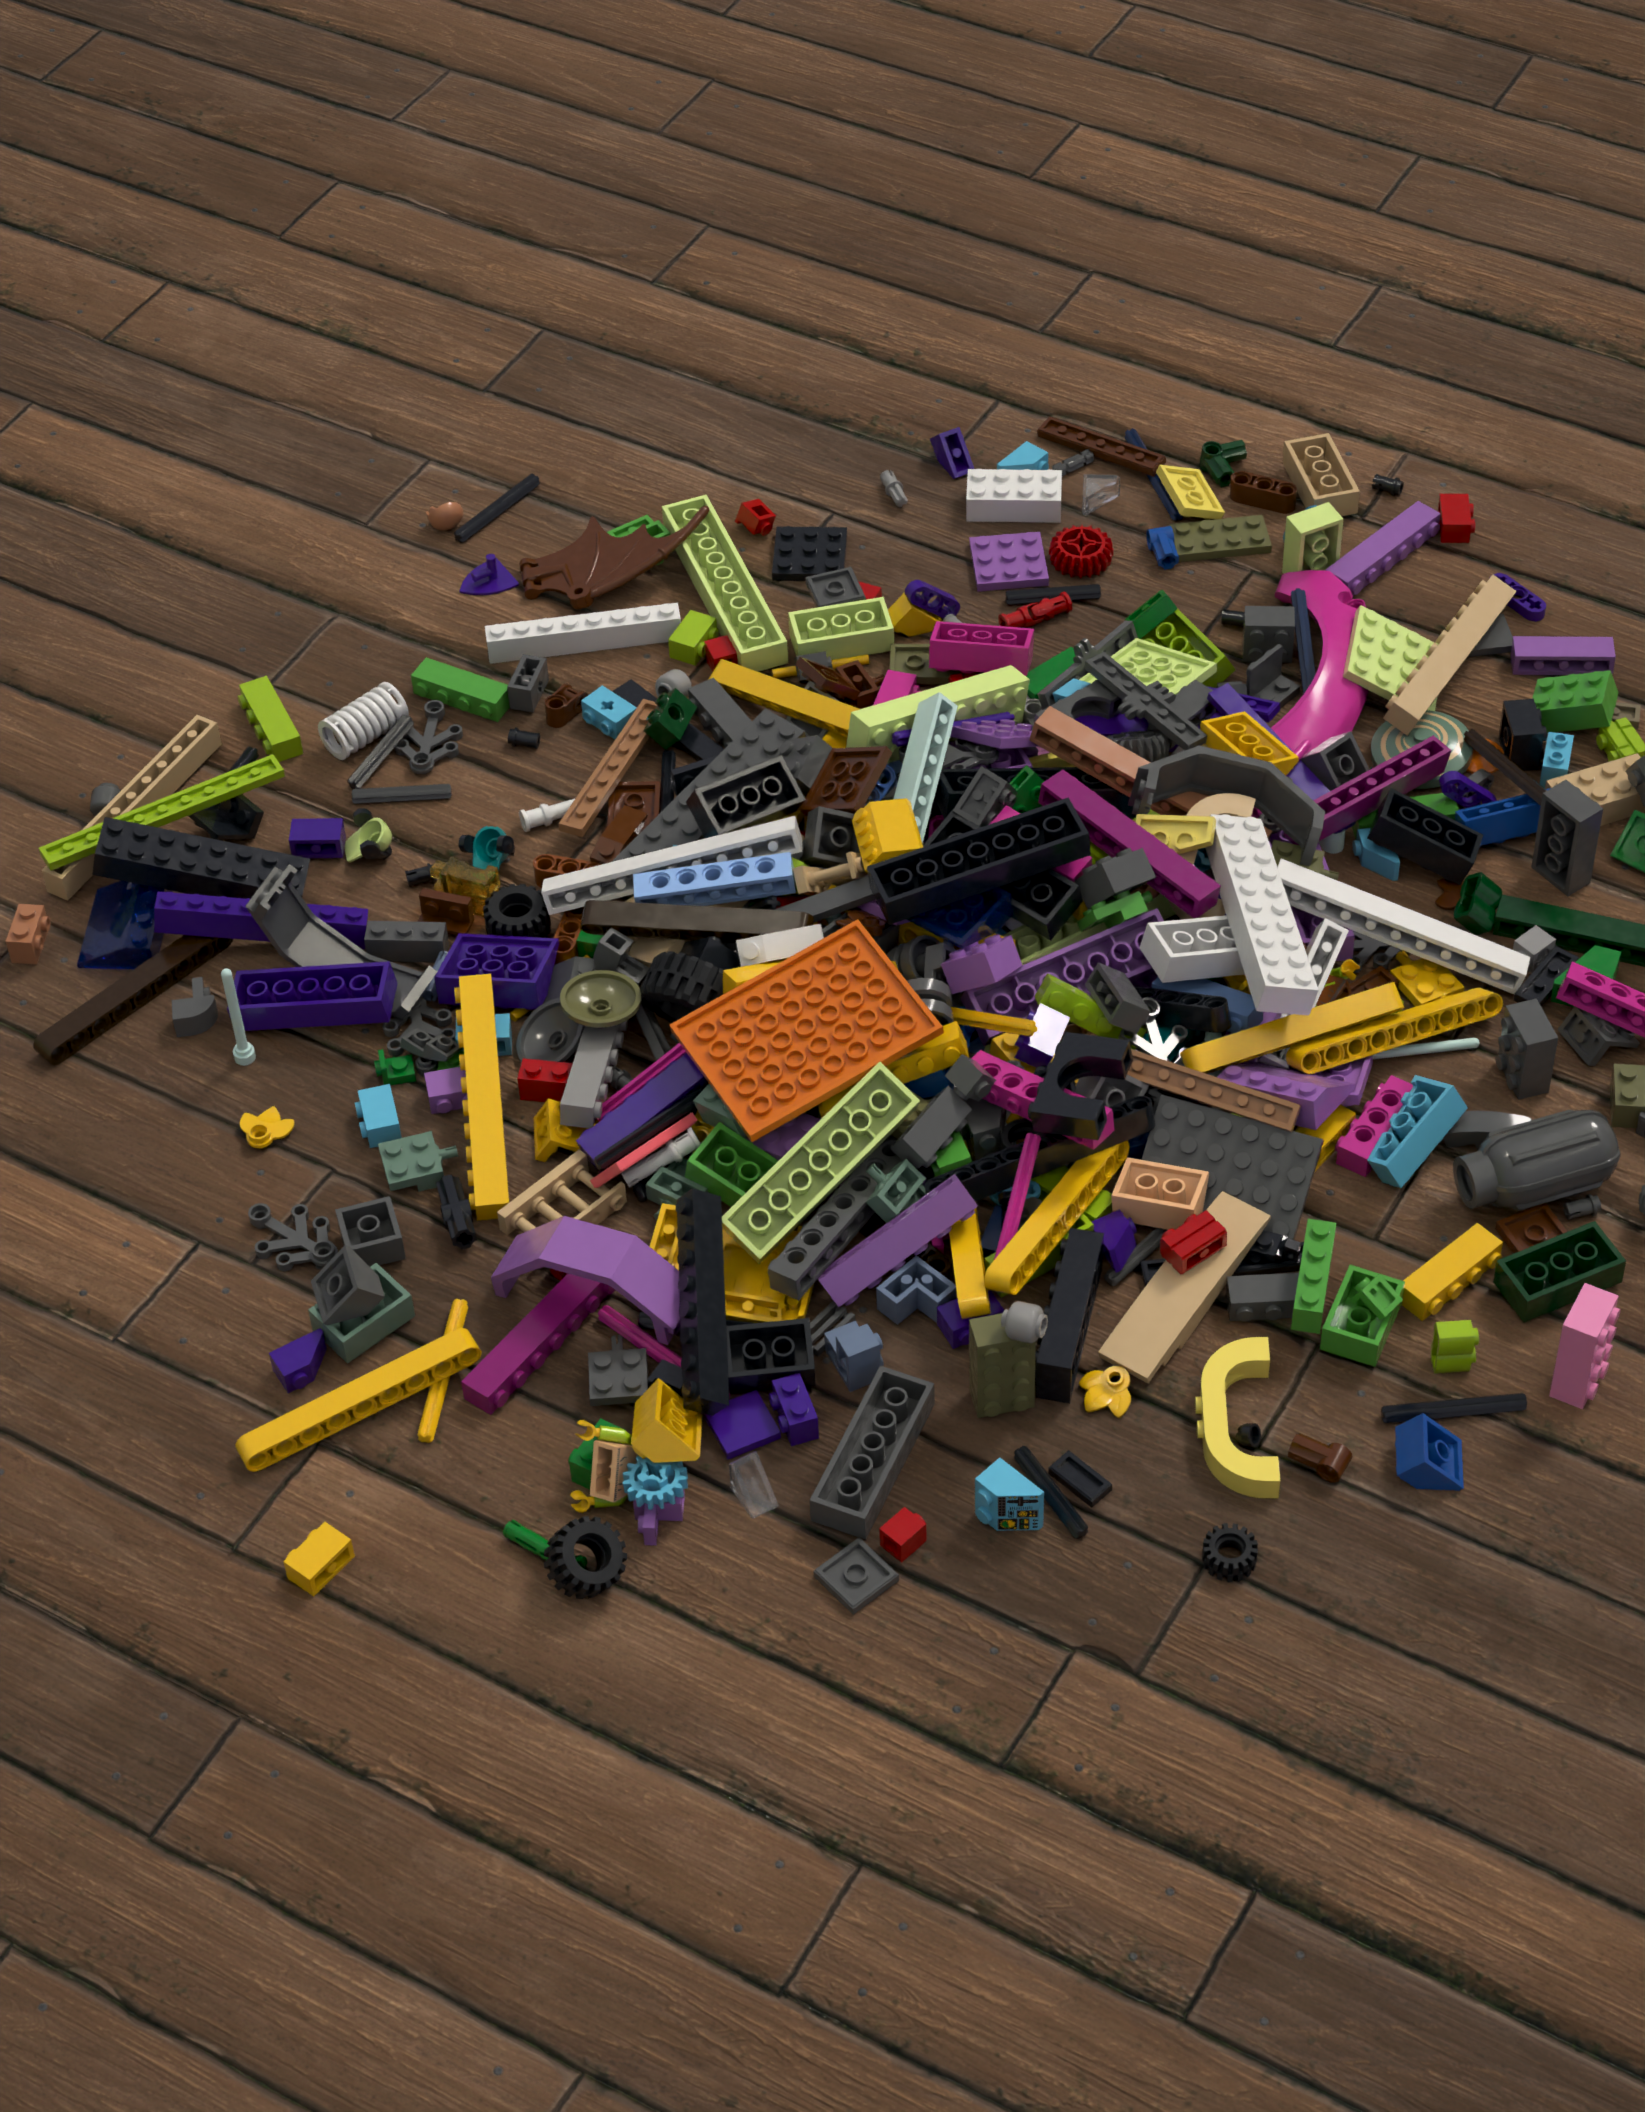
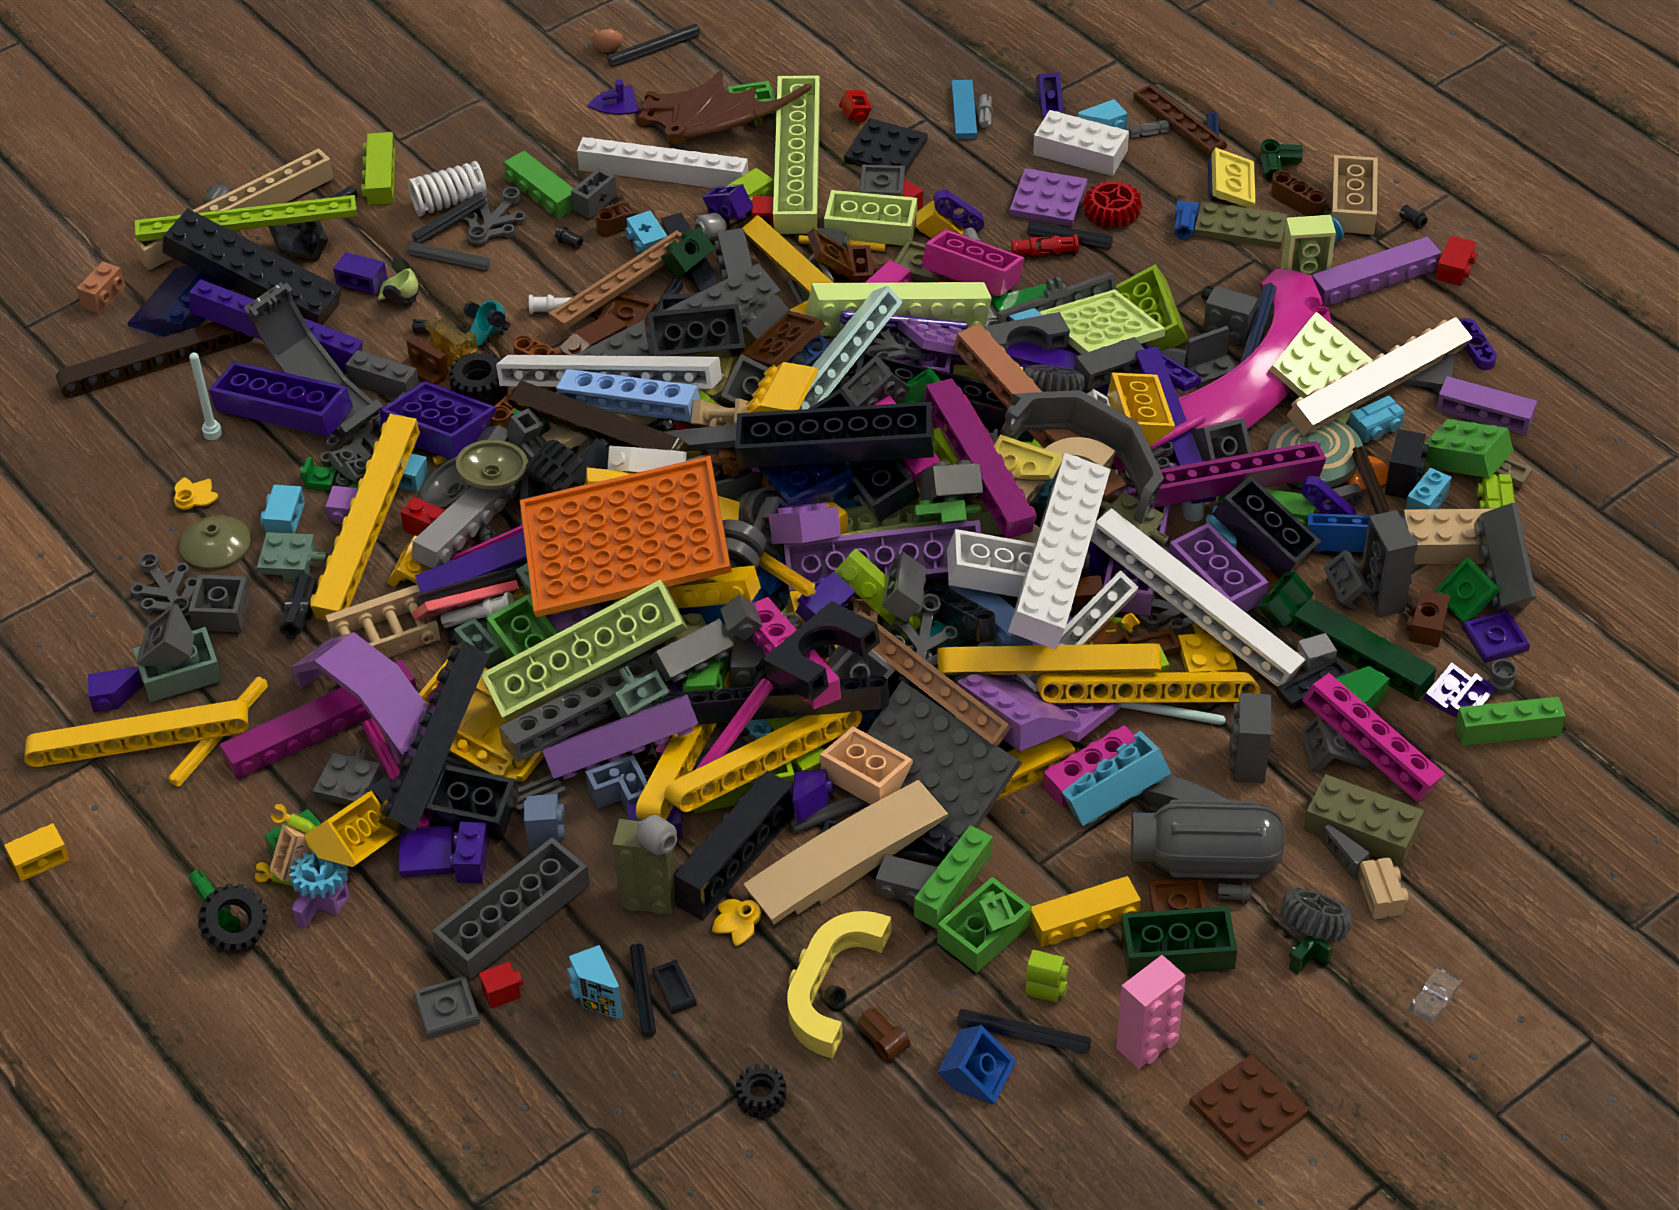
camera: 20 degrees right, 0 degrees up
(195, 1014) = (183, 388): dark grey brick -> none
(318, 1173) = (215, 542): none -> olive dish
(682, 652) = (728, 201): none -> dark purple brick
(752, 1485) = (402, 903): clear slope -> none
(869, 492) = (964, 109): none -> dark azure tile
(1099, 491) = (1155, 157): clear slope -> none
(1145, 701) = (1075, 343): dark grey hinge -> none
(1152, 613) = (1136, 272): green slope -> none
(1193, 1241) = (864, 814): red brick -> none
(1400, 885) = (1220, 566): none -> medium lavender brick
(1466, 697) = (1377, 419): none -> medium azure brick
(1524, 865) = (1345, 579): none -> dark grey bracket
(1621, 881) = (1429, 617): none -> reddish brown brick

